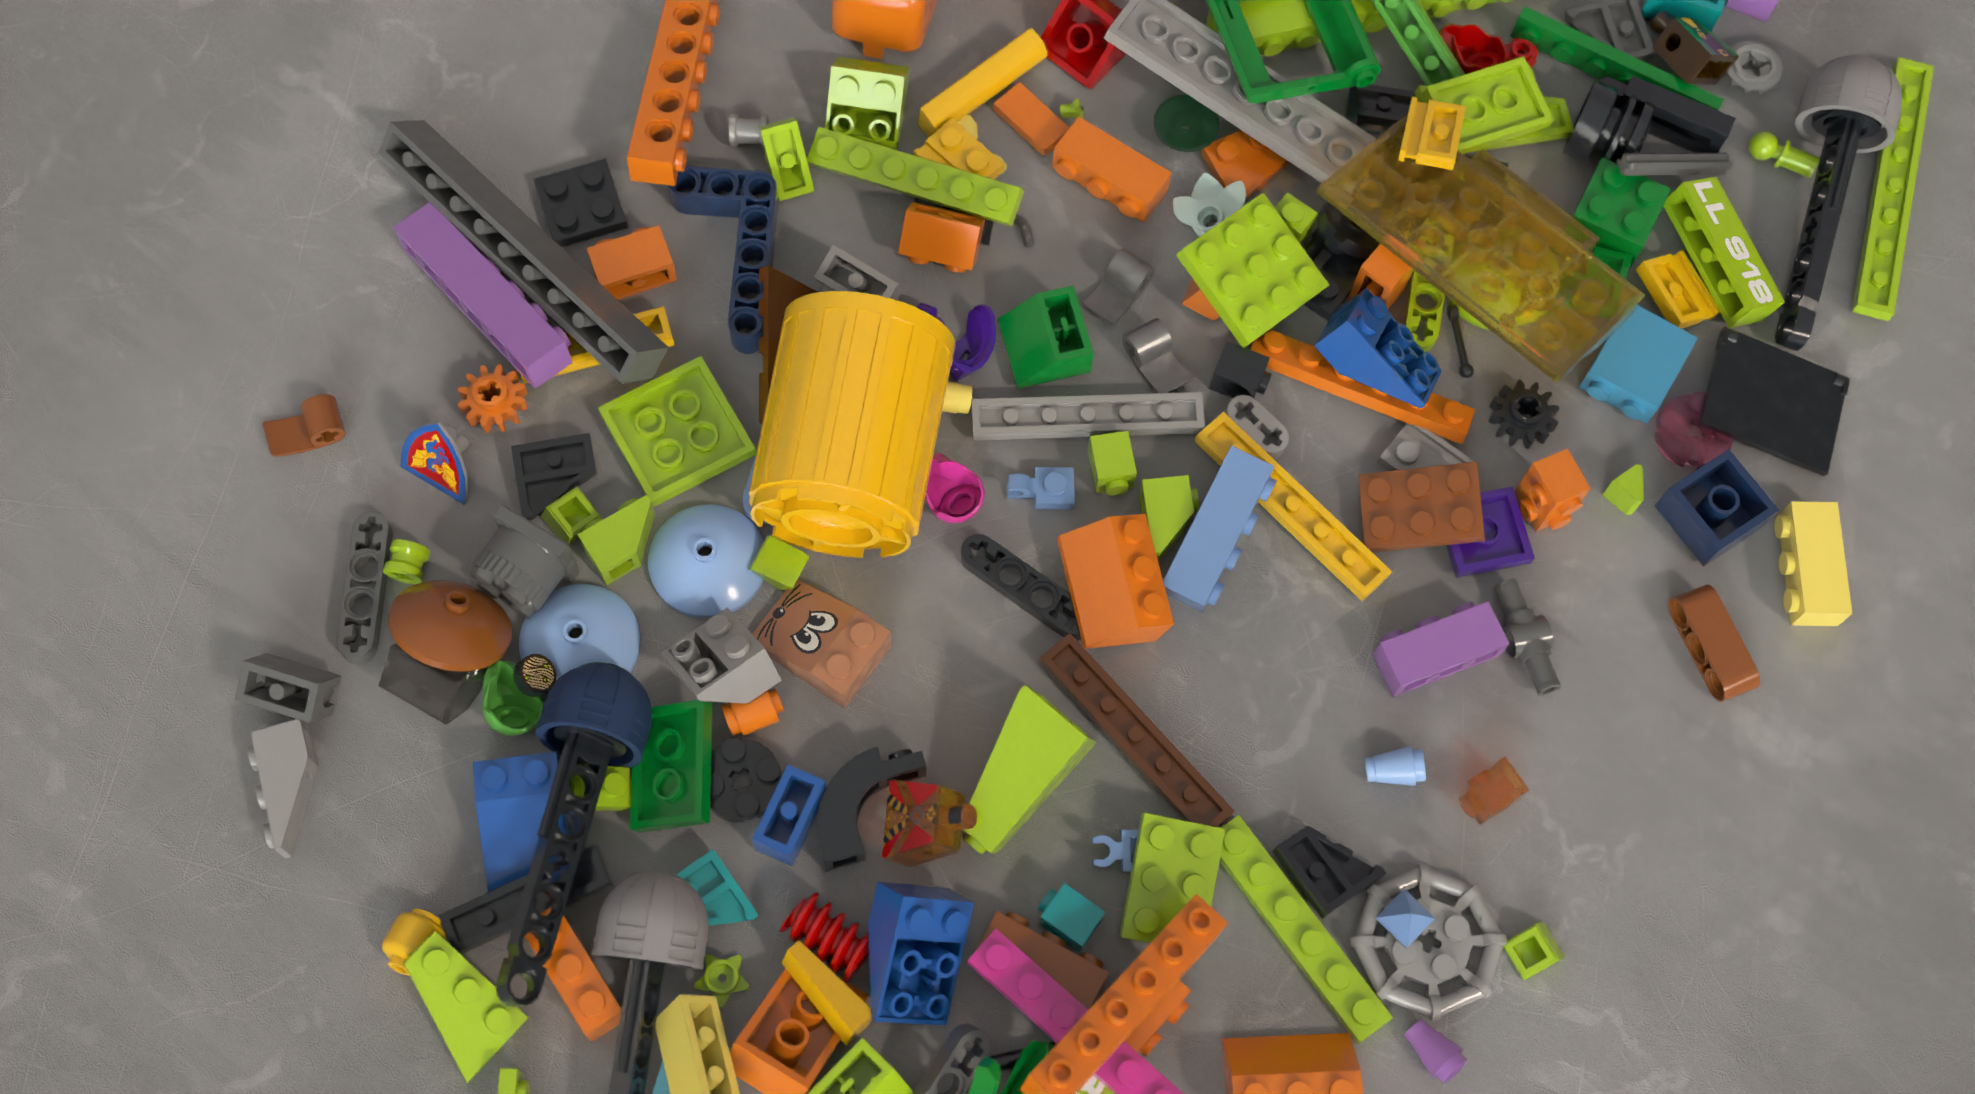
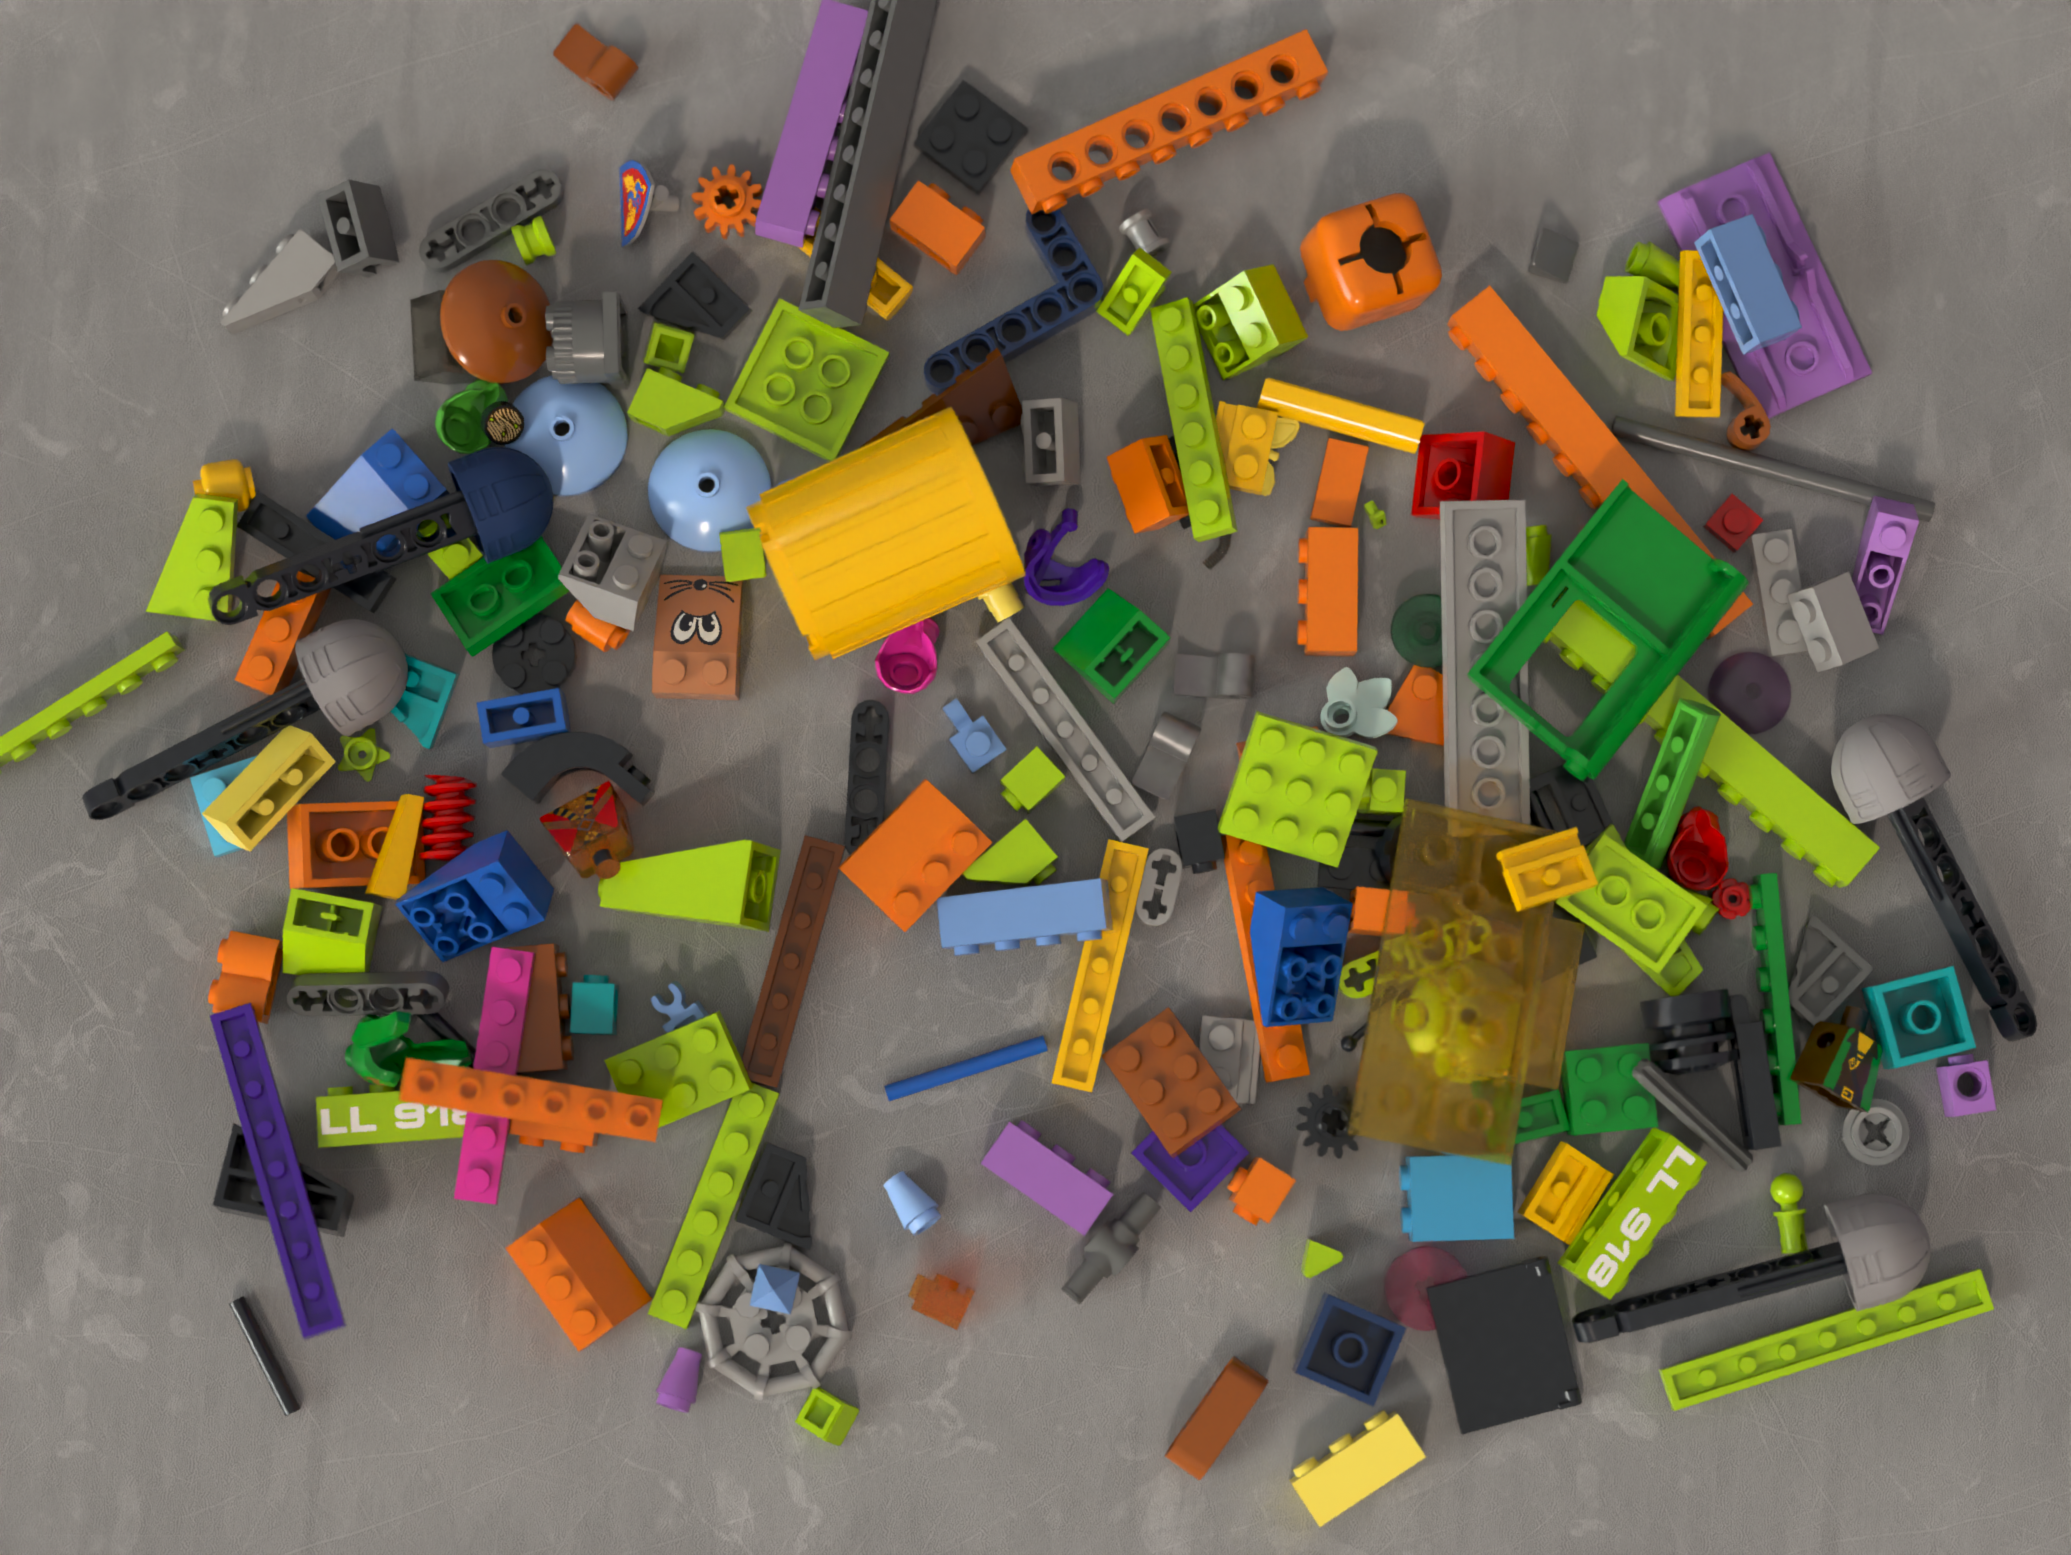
camera: 60 degrees right, 15 degrees up
(1309, 659) = (966, 1068): none -> blue bar

